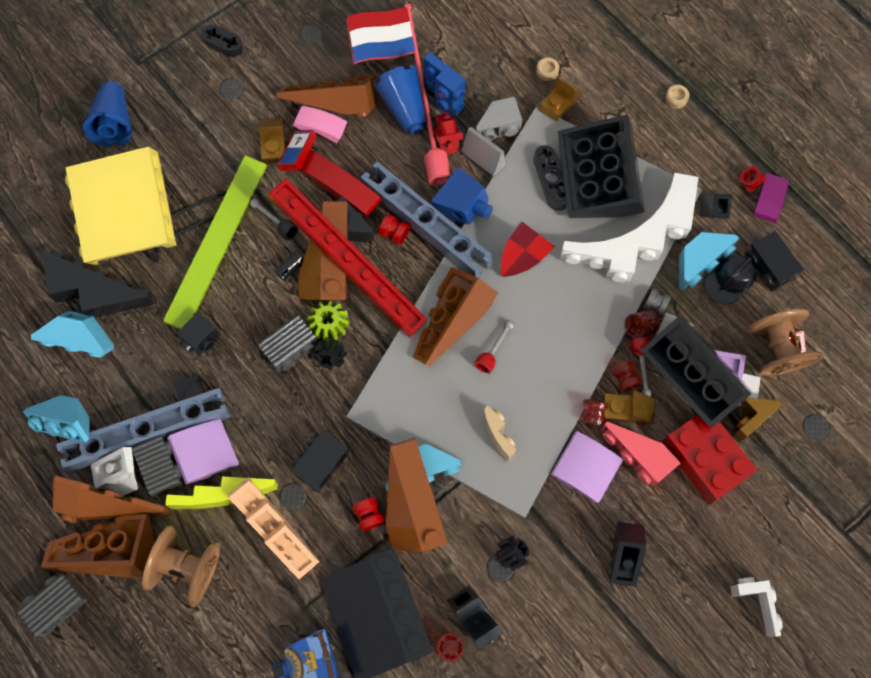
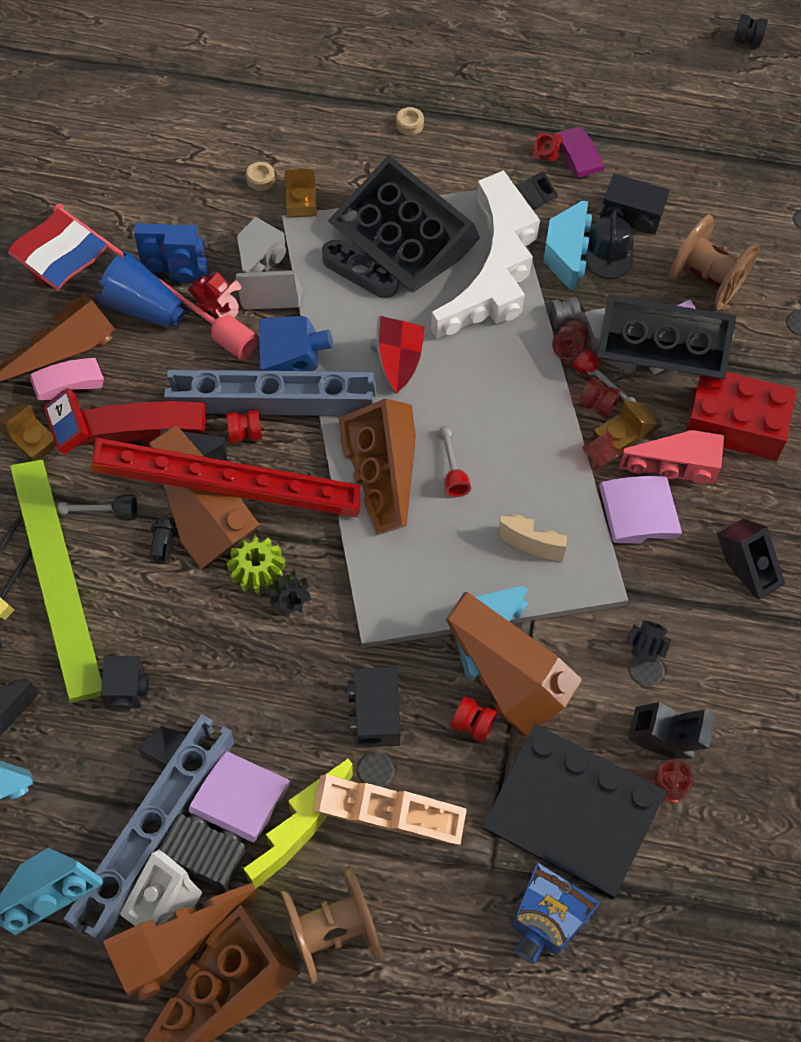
camera: 40 degrees left, 10 degrees down
(288, 344) = (233, 618): dark grey brick -> none
(757, 412) = (746, 347): pearl gold slope -> none

